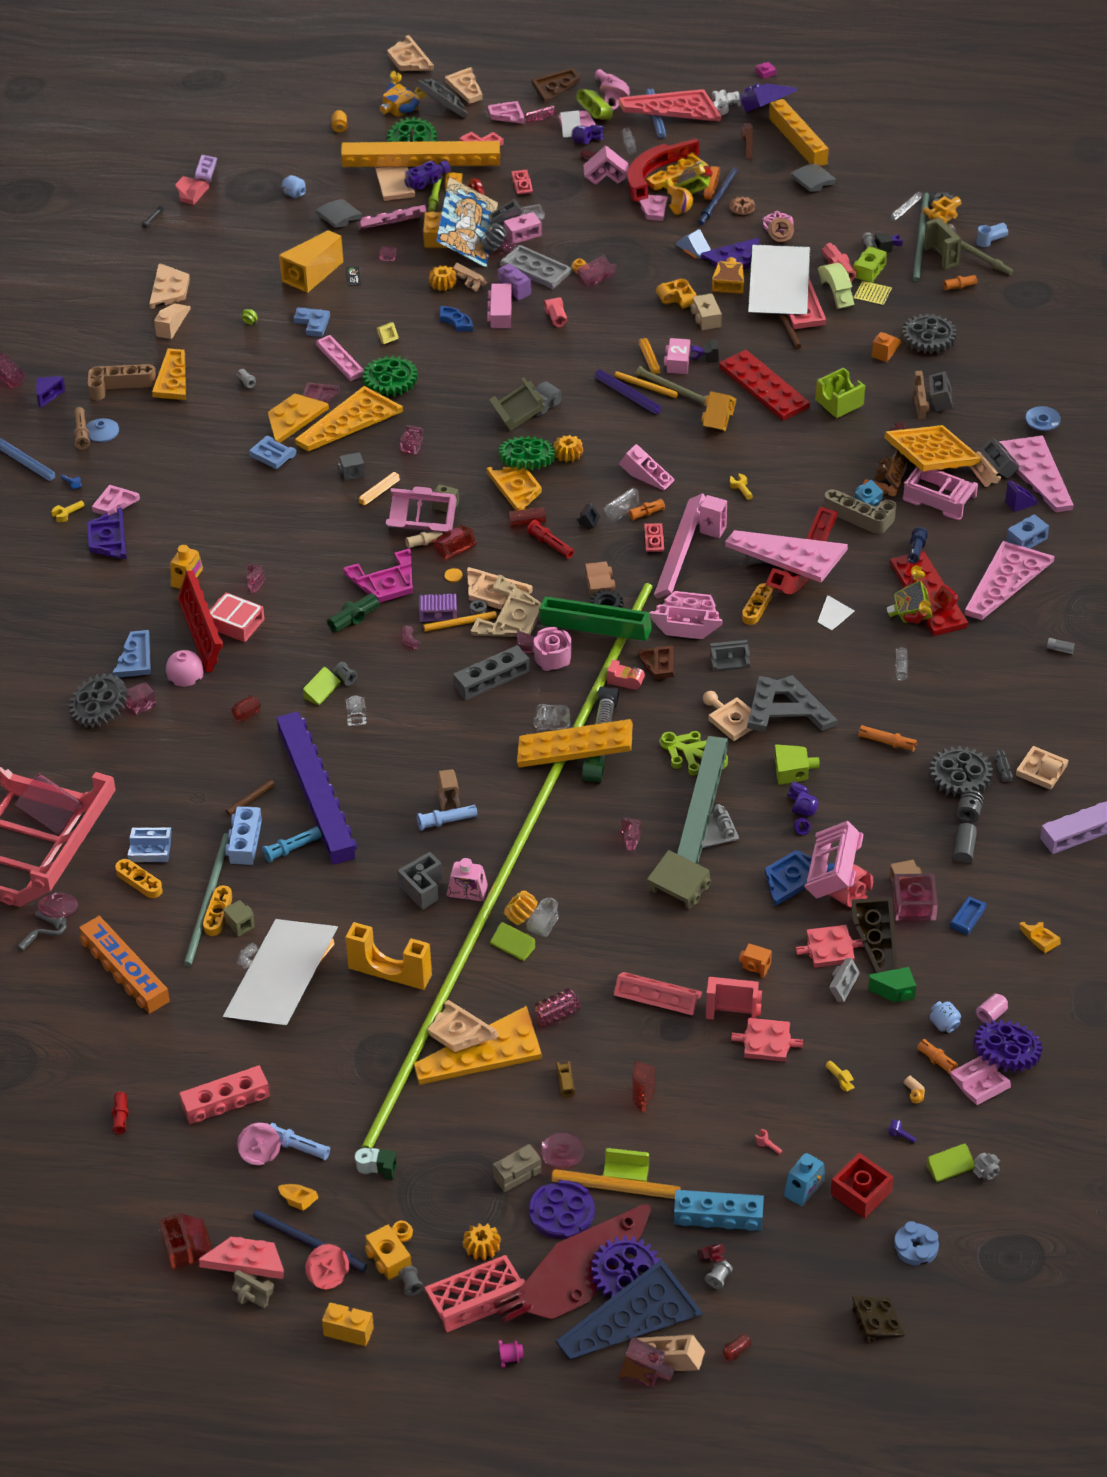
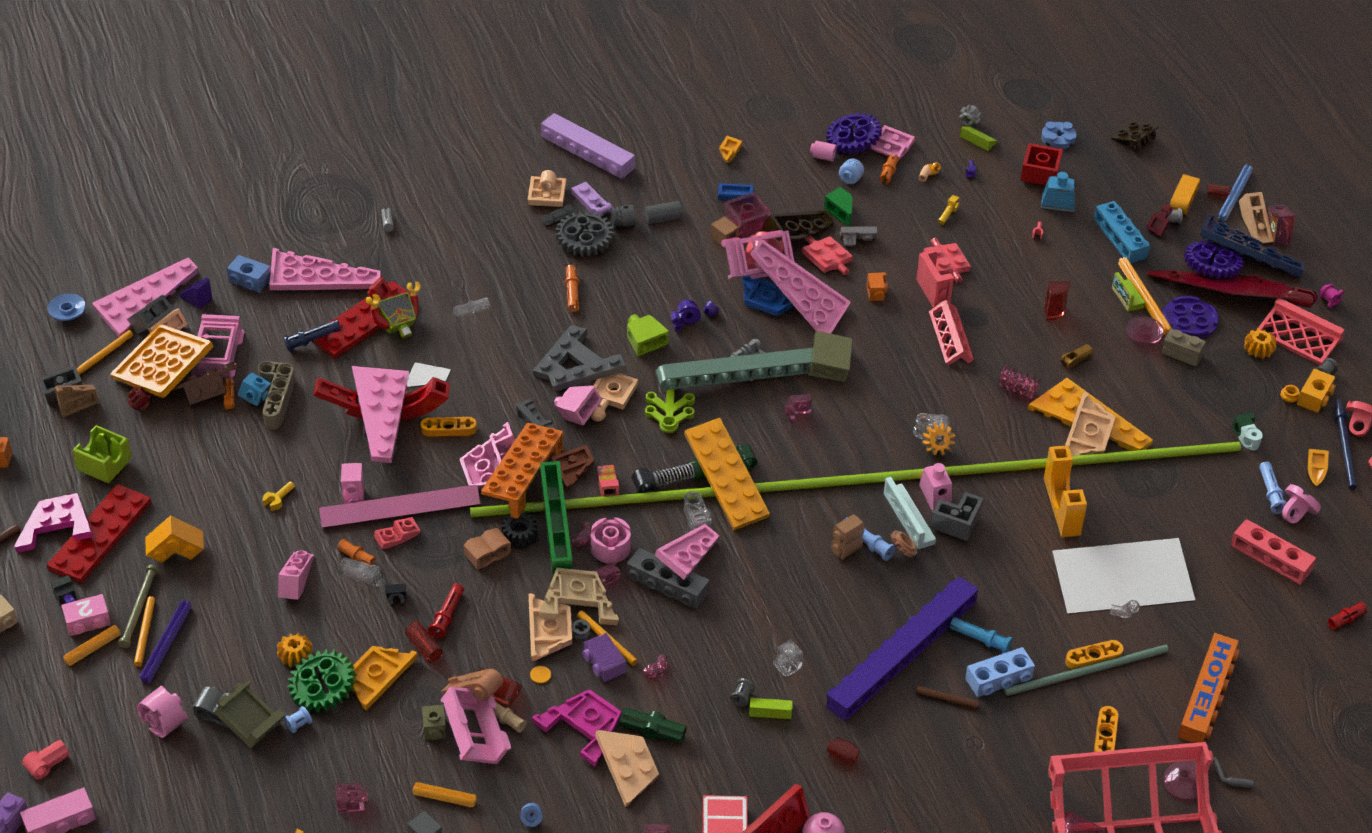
camera: 120 degrees left, 0 degrees up
(149, 844) = (1060, 741): medium blue slope -> none
(239, 918) = (1093, 629): olive brick -> none
(324, 522) = (531, 814): none -> medium blue tile
(329, 586) = (628, 763): none -> light nougat wing
(412, 837) = (903, 543): none -> nougat gear
(450, 519) = (481, 683): none -> nougat door
(455, 853) = (908, 514): none -> light aqua fence
(502, 430) = (297, 719): none -> light blue bush
(503, 683) = (688, 550): none -> bright pink wing
(513, 941) = (970, 439): lime slope -> none
(551, 363) = (162, 712): none -> bright pink brick
(576, 645) = (583, 537): none -> clear pink arm
(666, 614) = (522, 464): none -> orange bracket
(722, 680) = (578, 403): none -> bright pink torso
(726, 1365) = (1235, 193): none -> medium blue axle
(747, 1306) = (1185, 193): none -> light orange beam
(771, 884) = (810, 296): none -> bright pink wing
(792, 363) = (55, 515): none -> wing
(971, 426) = (104, 352): none -> light orange bar
(1013, 799) = (591, 199): none -> lavender plate

